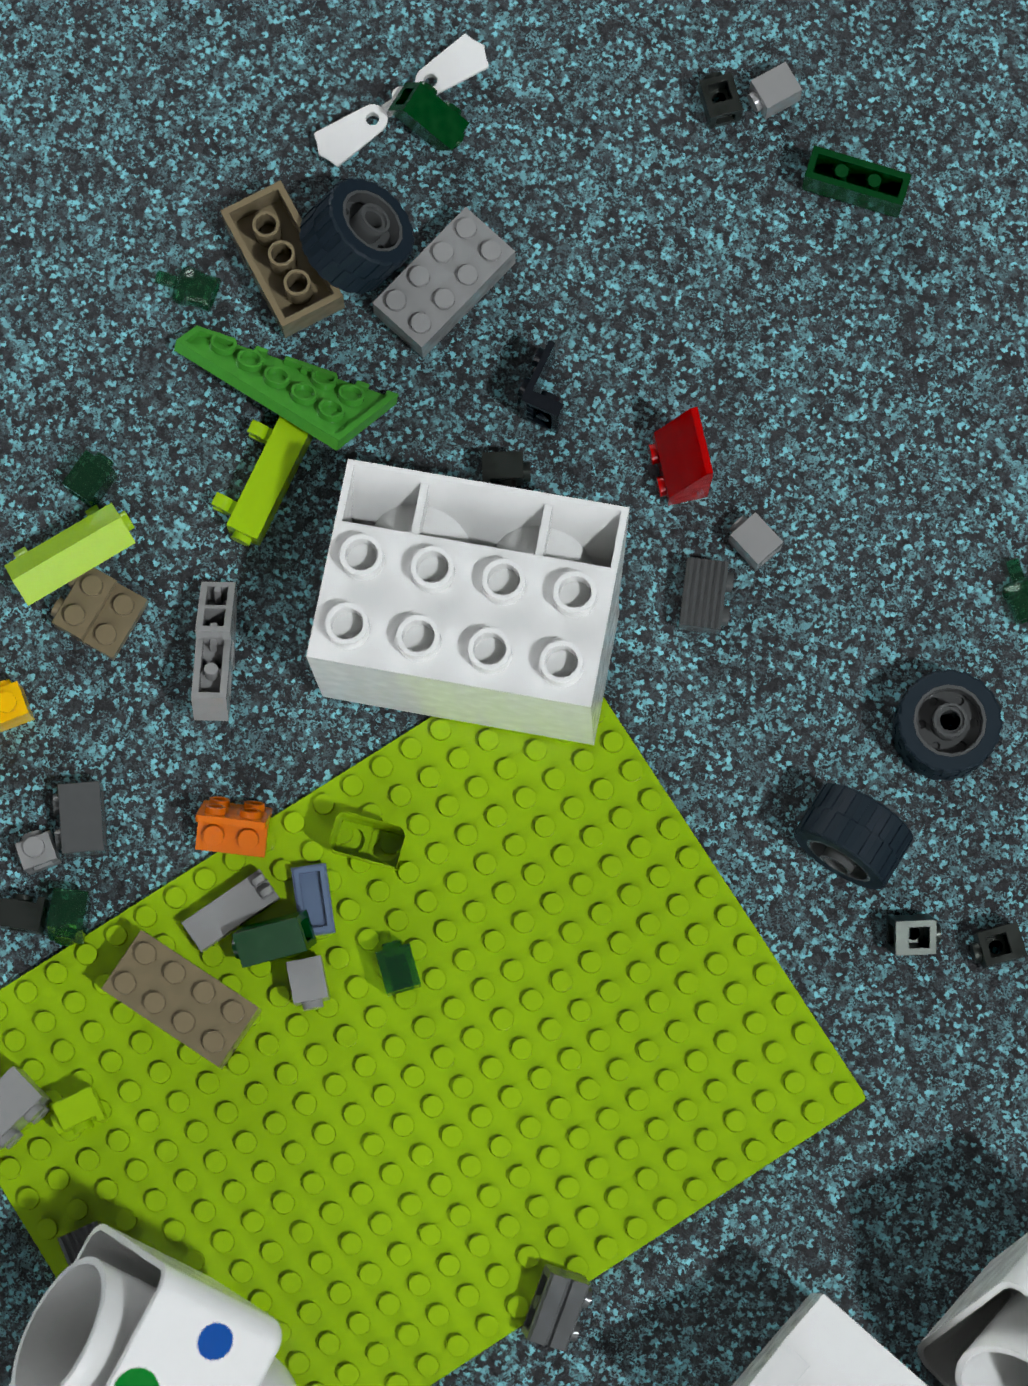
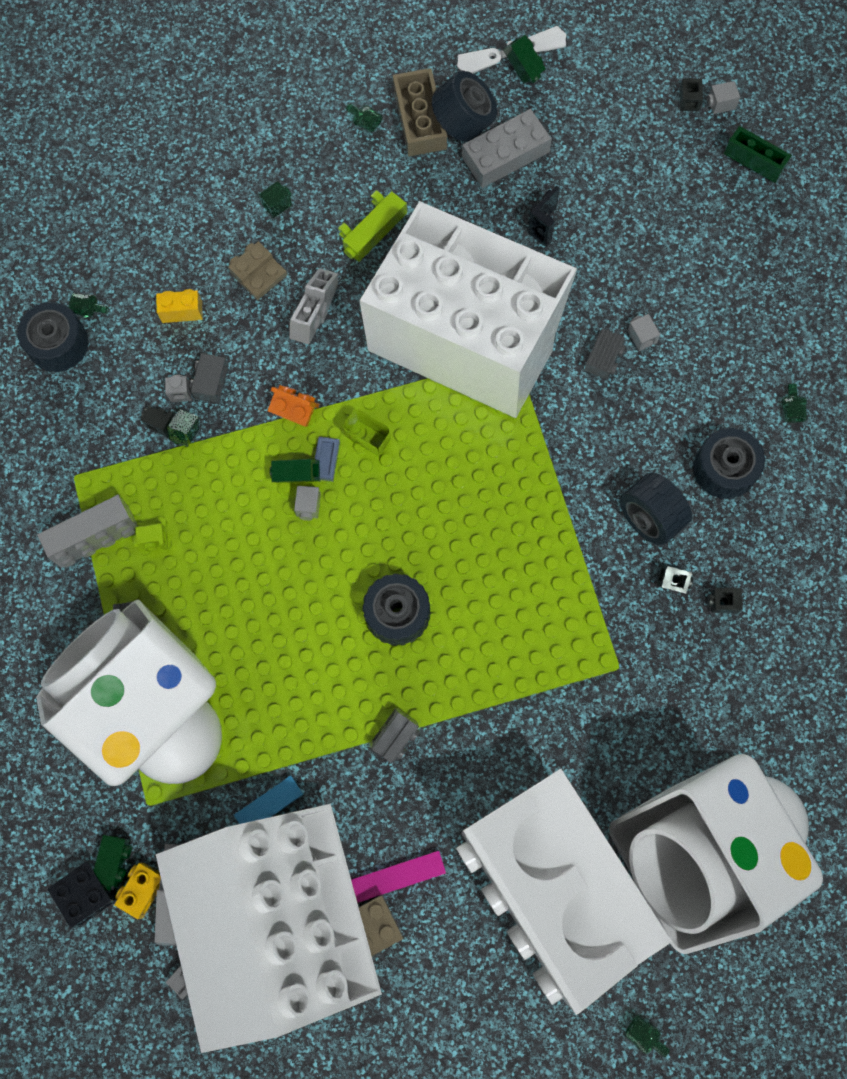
camera: 20 degrees right, 5 degrees down
(70, 552) = (250, 231): lime brick -> none
(181, 999) = (231, 491): dark tan brick -> none
(230, 910) = (280, 449): light grey hinge -> none
(289, 387) = (405, 182): bright green wing -> none
(398, 967) = (362, 509): clear green brick -> none
(508, 1085) = (395, 592): none -> wheel
(682, 459) = (614, 273): red slope -> none

